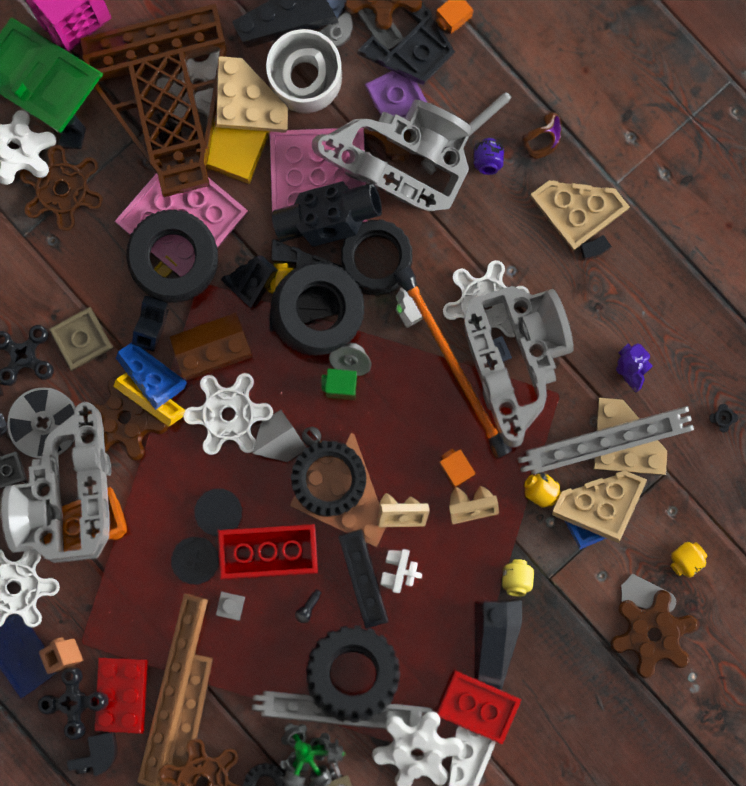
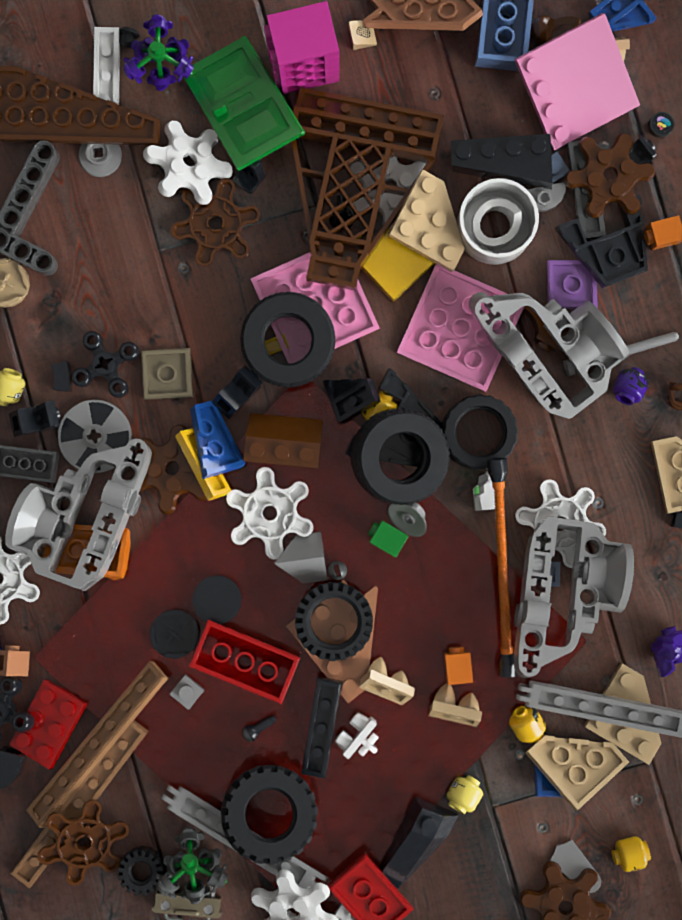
camera: 25 degrees right, 5 degrees up
(327, 213) = (453, 370): black brick -> none

